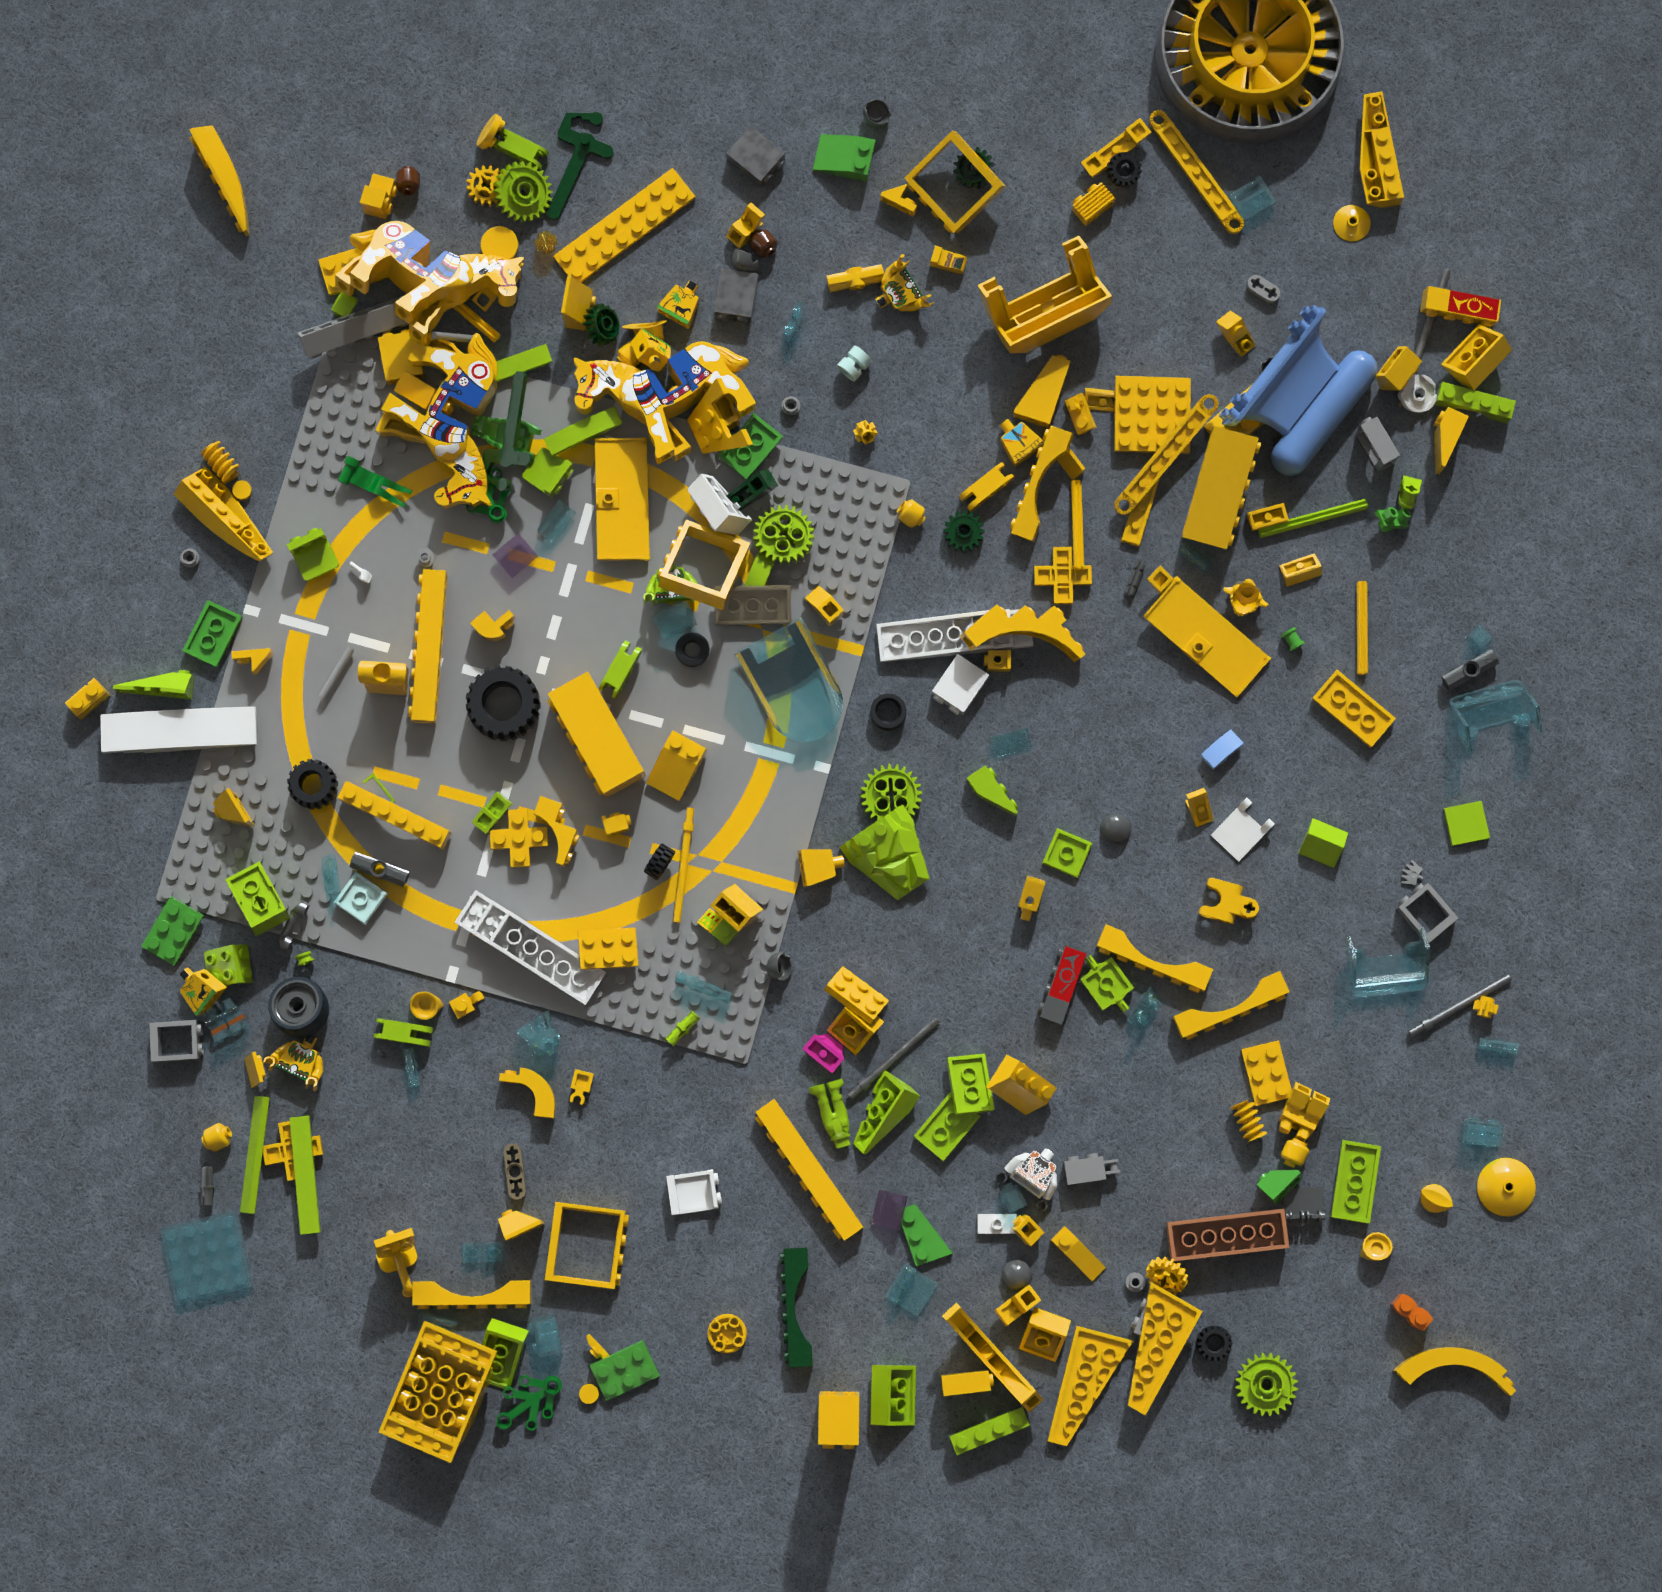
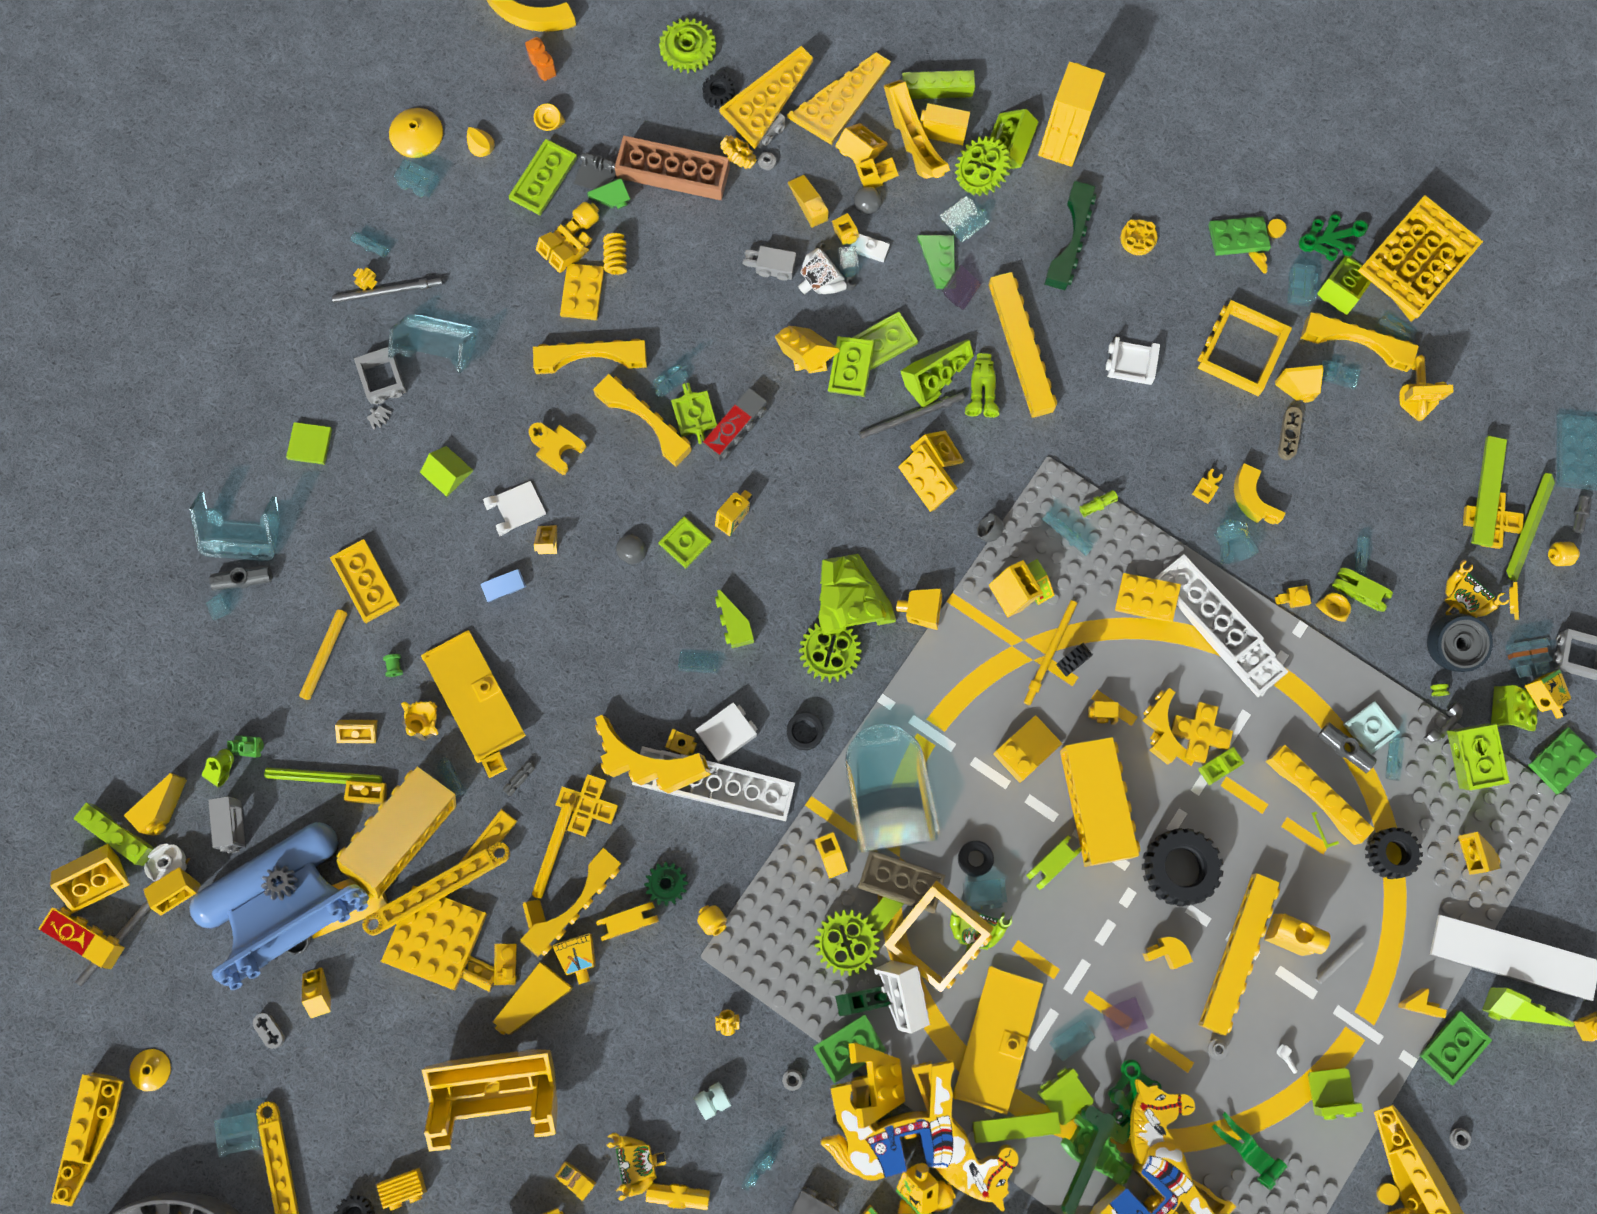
camera: 165 degrees left, 5 degrees down
(825, 1051) = (972, 440): dark pink slope -> none
(912, 1333) = (989, 150): none -> lime gear
(1308, 410) = (279, 891): none -> flat silver gear

